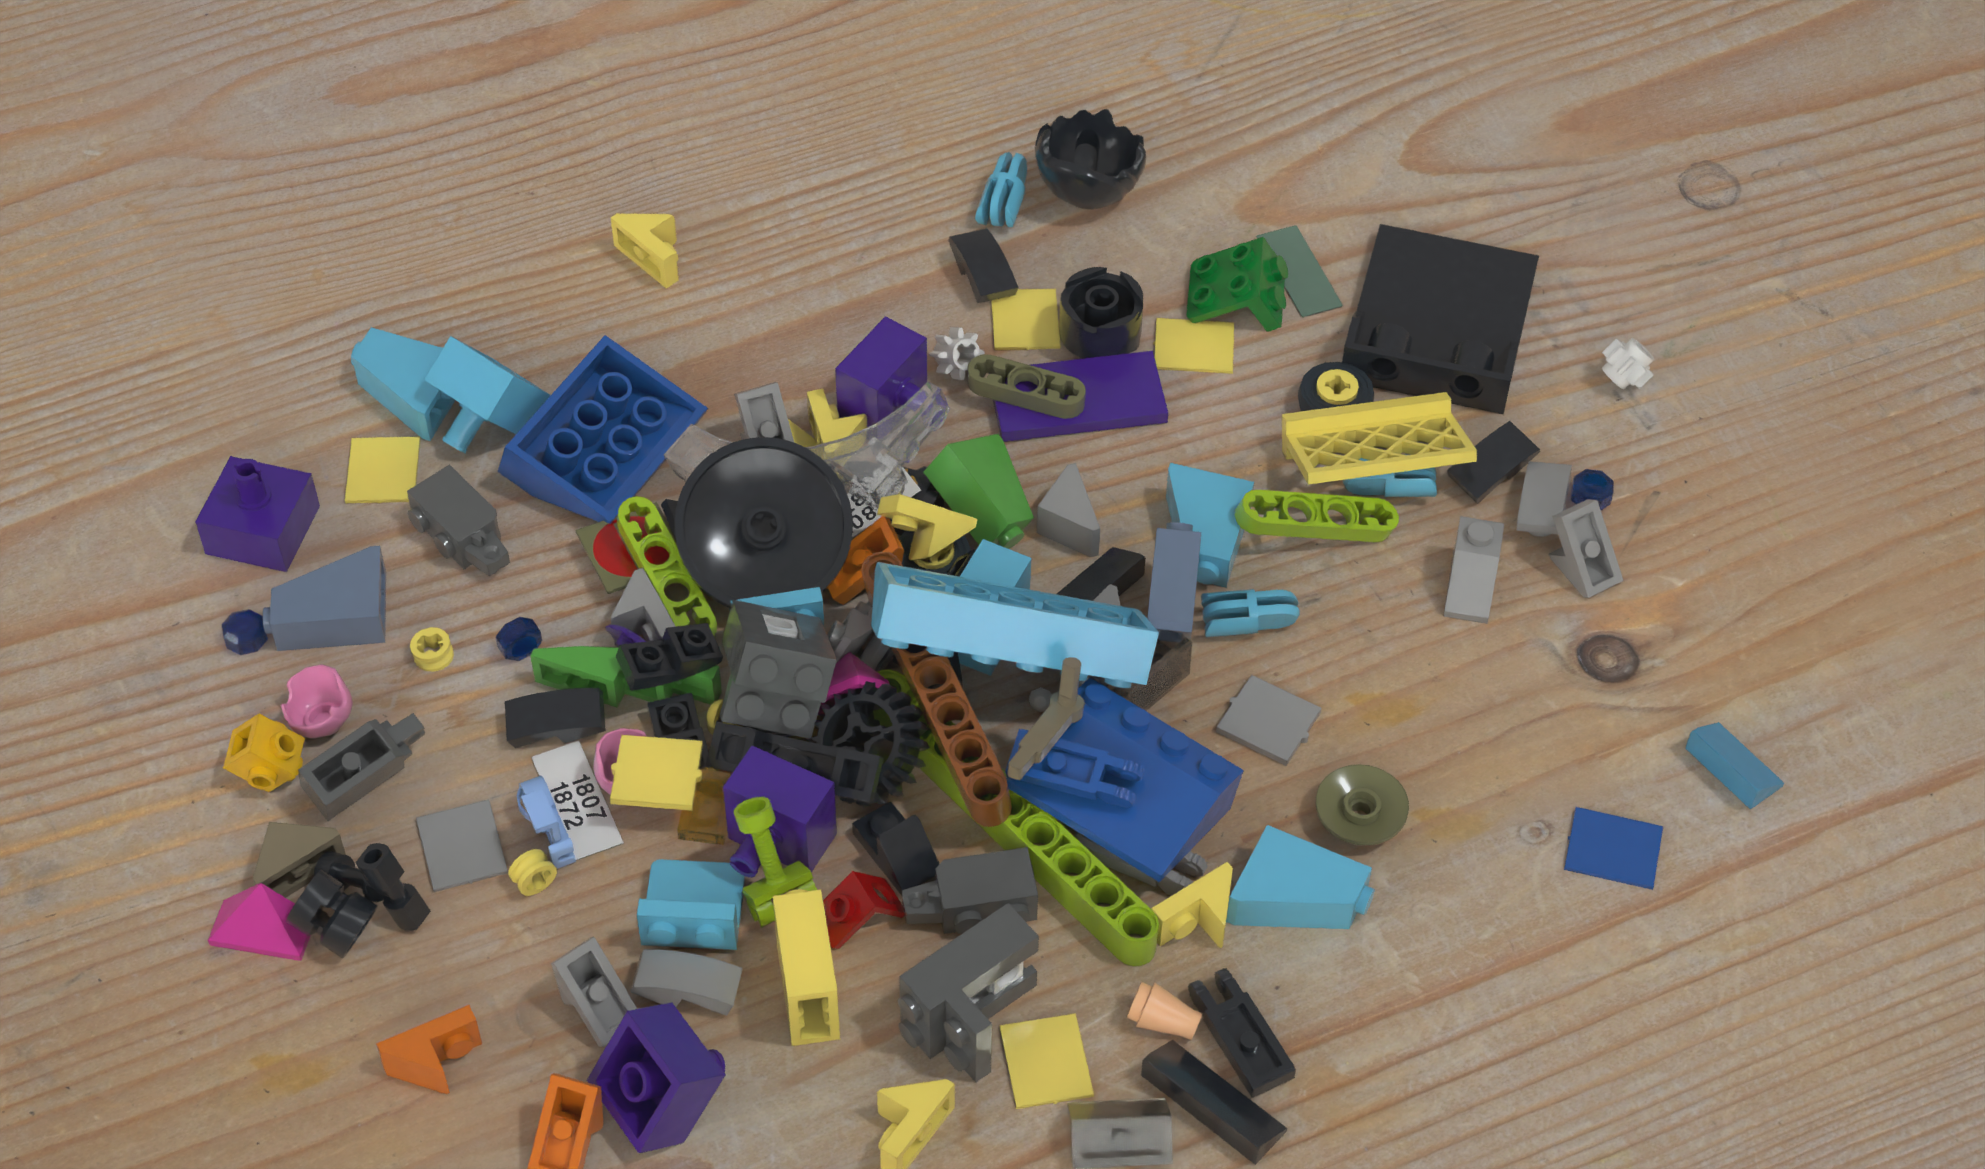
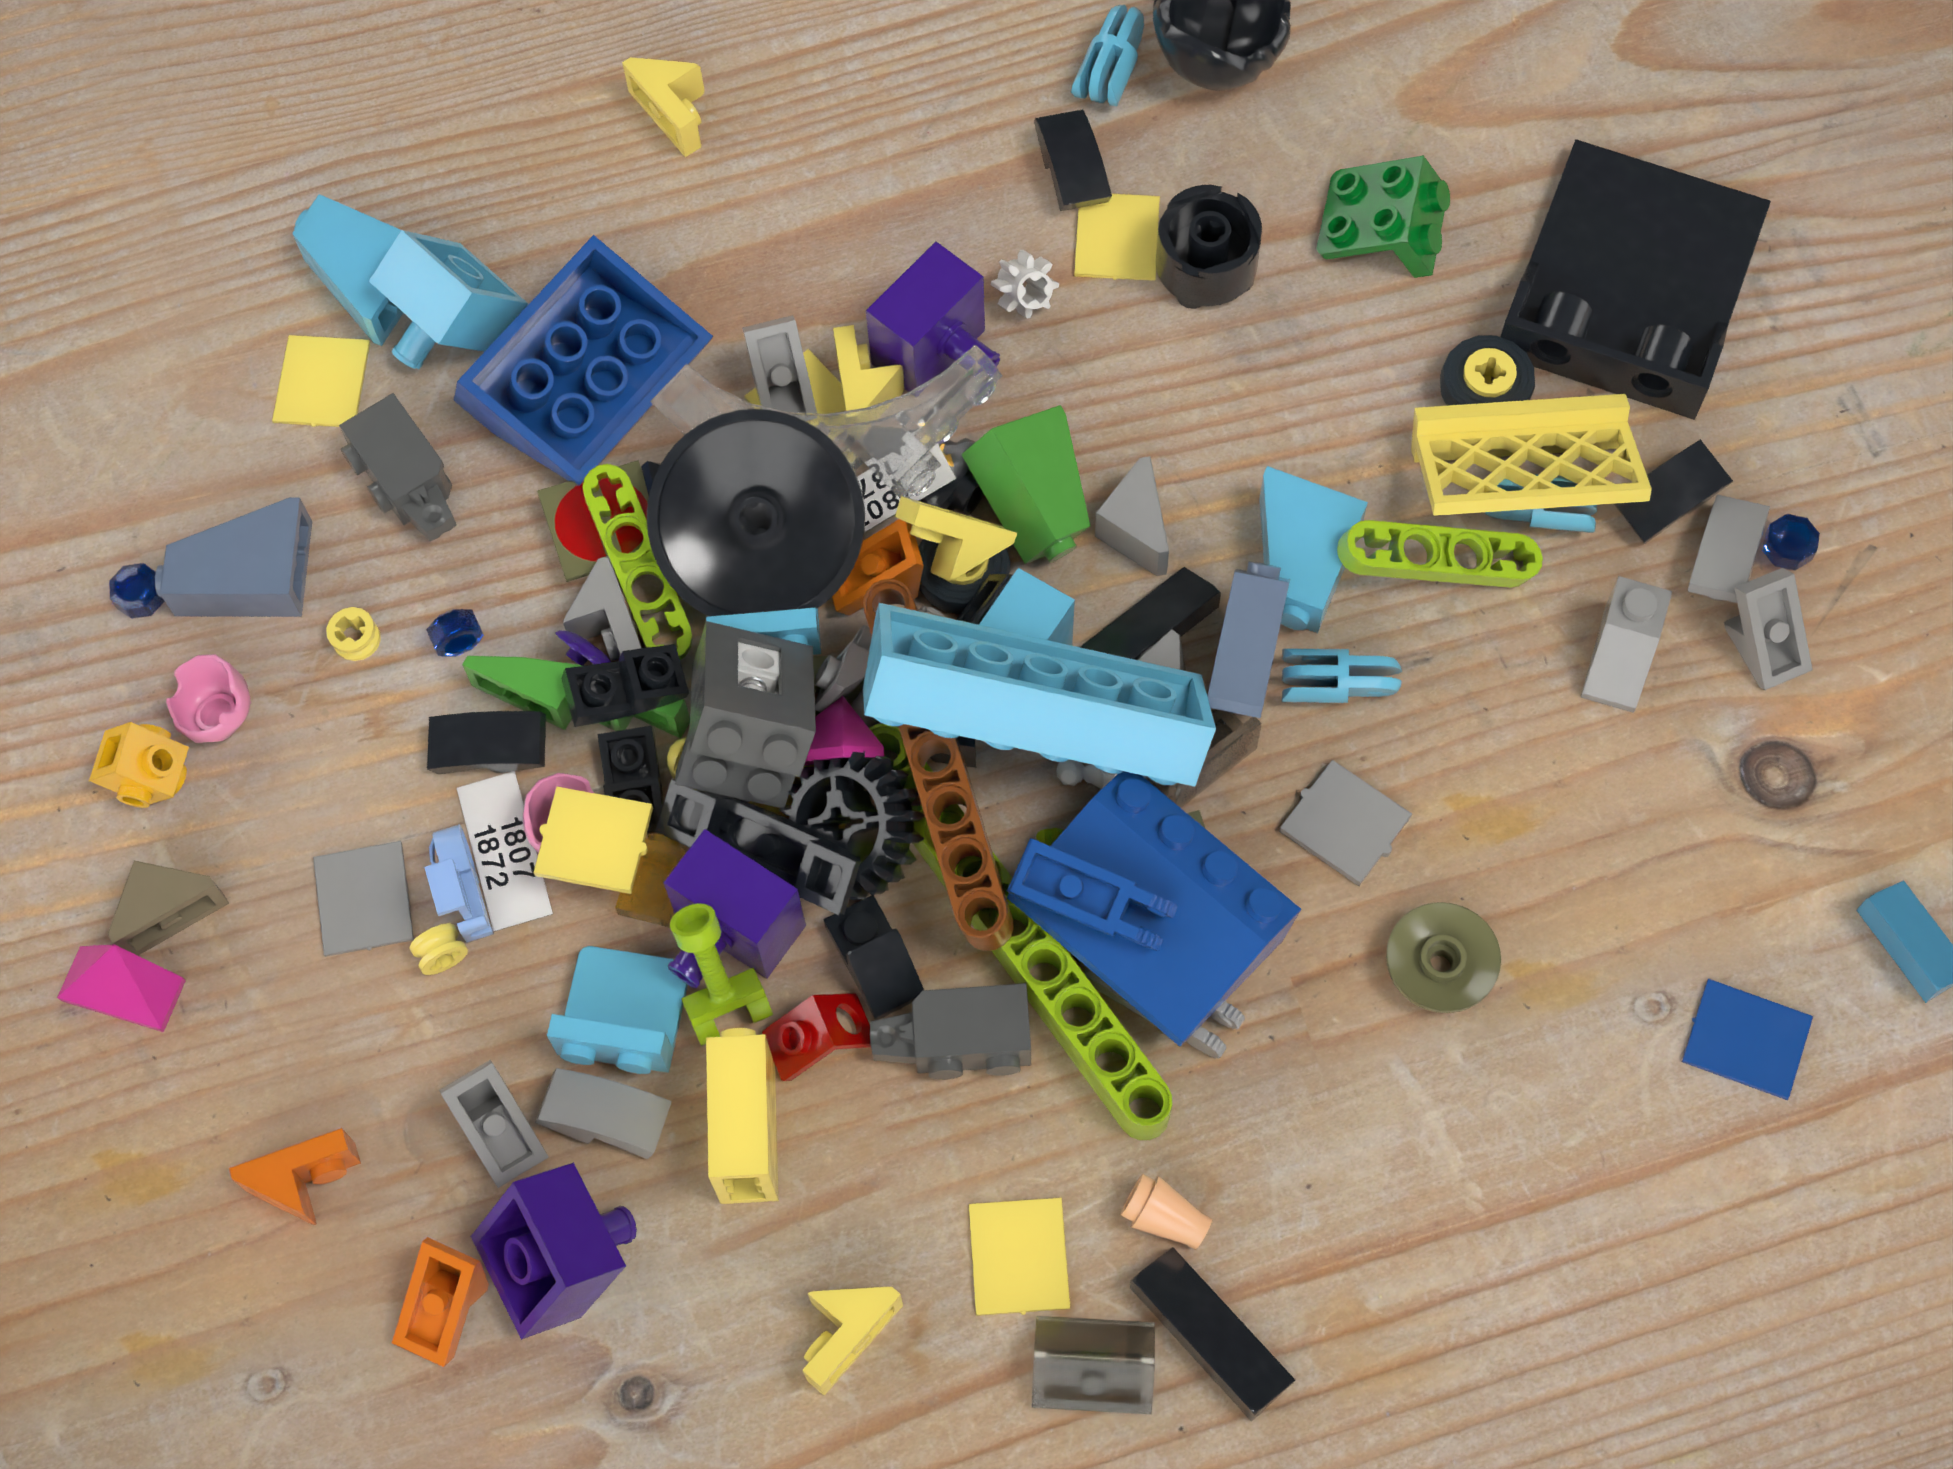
camera: 10 degrees right, 15 degrees up
(258, 513) = (164, 435): dark purple brick -> none
(346, 923) = (195, 988): black wheel -> none
(359, 764) = (247, 789): dark grey hinge -> none
(380, 880) = (252, 951): black bar -> none
(963, 985) = (927, 1163): dark grey brick -> none
(1035, 400) = (1112, 358): olive beam -> none
(1063, 710) = (1089, 815): dark tan piece -> none
(1118, 394) = (1168, 352): dark purple tile -> none
(1194, 346) = (1321, 290): light yellow window -> none
(1199, 903) = (1234, 1070): light yellow slope -> none
(1243, 1035) = (1258, 1253): black hinge -> none
(1298, 886) = (1351, 1060): medium azure slope -> none
(1305, 279) = (1473, 208): sand green sticker -> none
(1628, 363) = (1862, 368): white gear -> none

